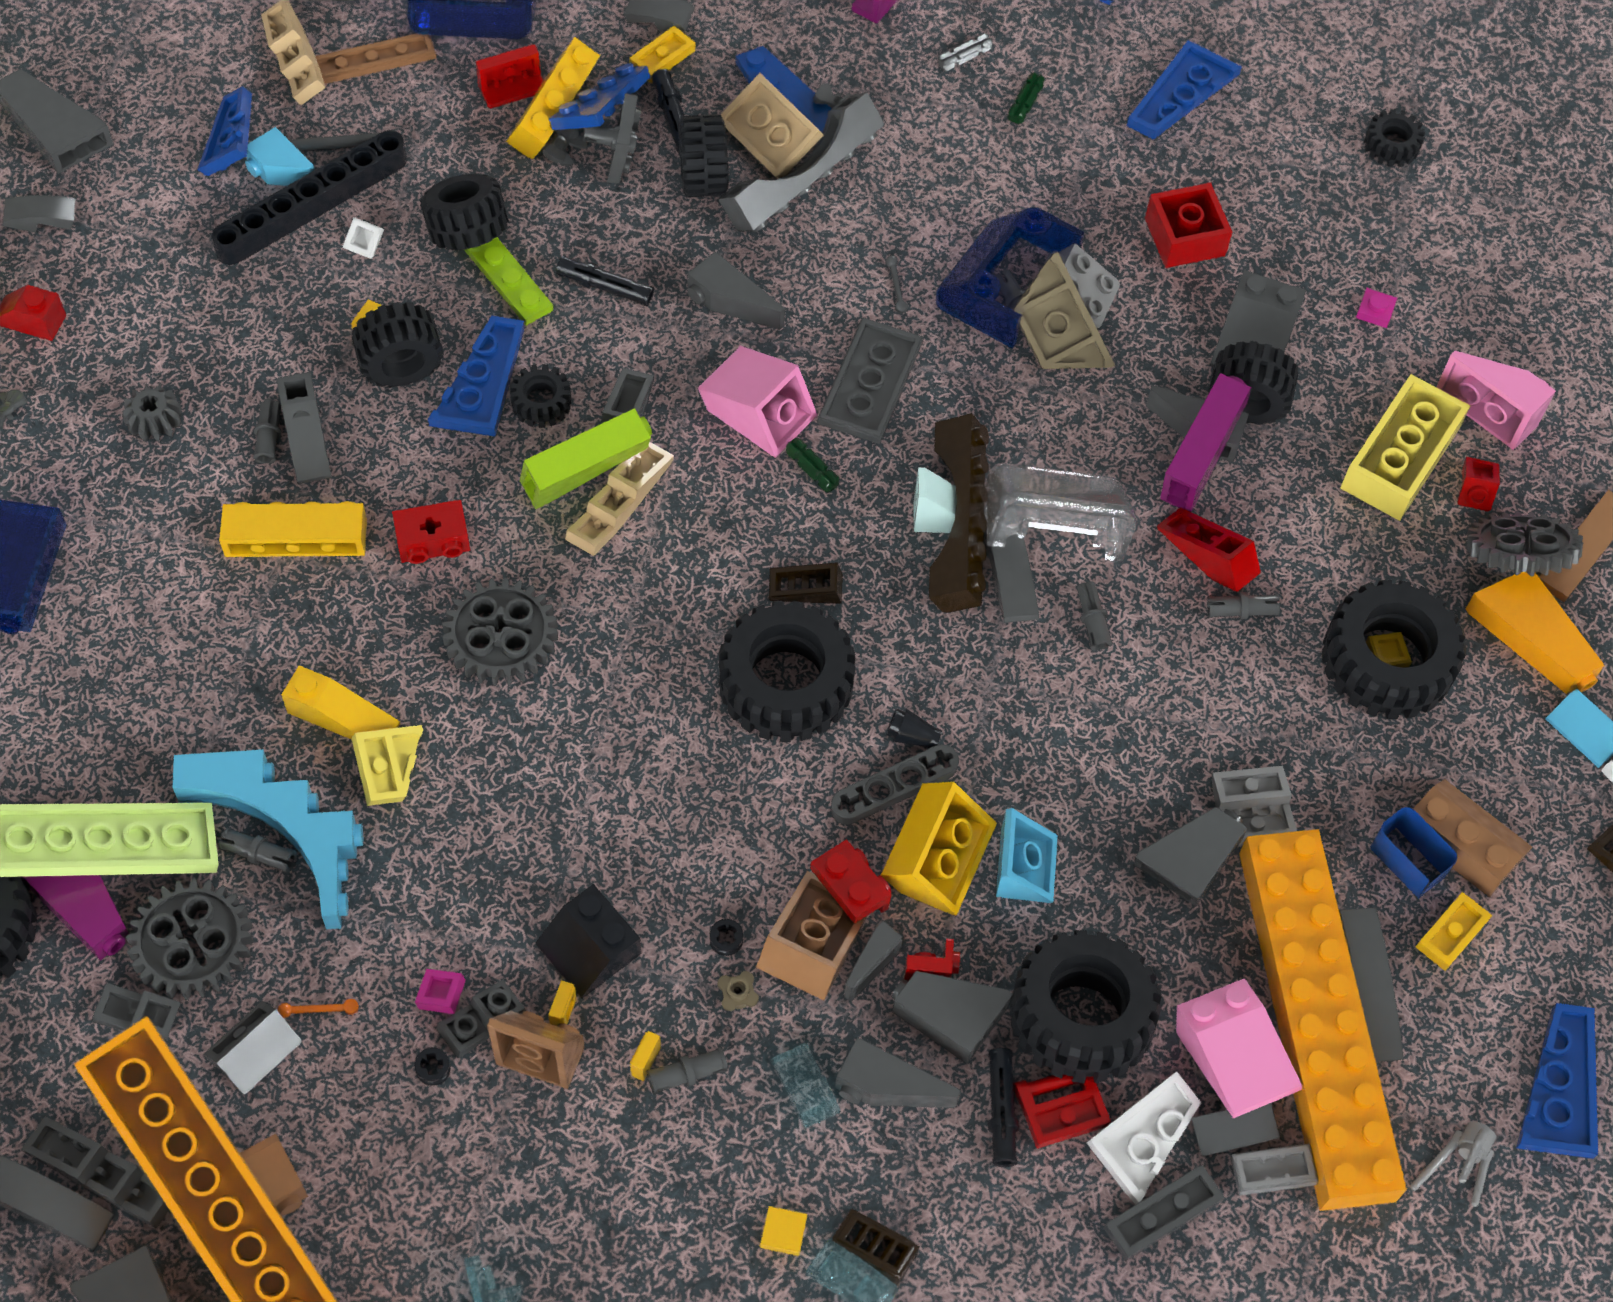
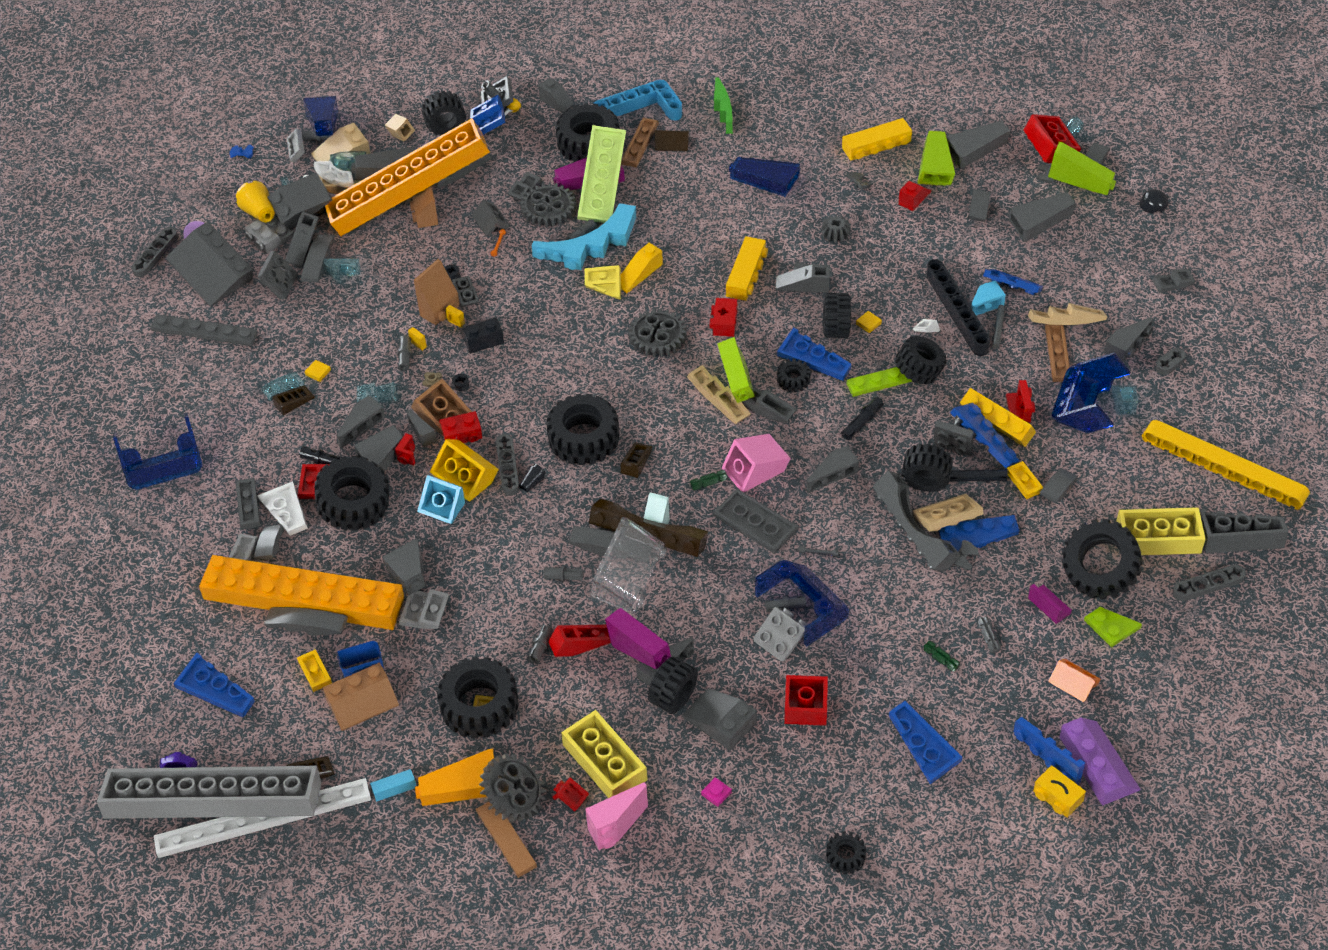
camera: 115 degrees right, 10 degrees down
(440, 991) = (483, 279): dark pink plate -> none
(1059, 322) = (752, 608): dark tan wing -> none
(1237, 1048) = (302, 548): bright pink slope -> none
(1474, 1147) = (208, 636): light grey plant -> none

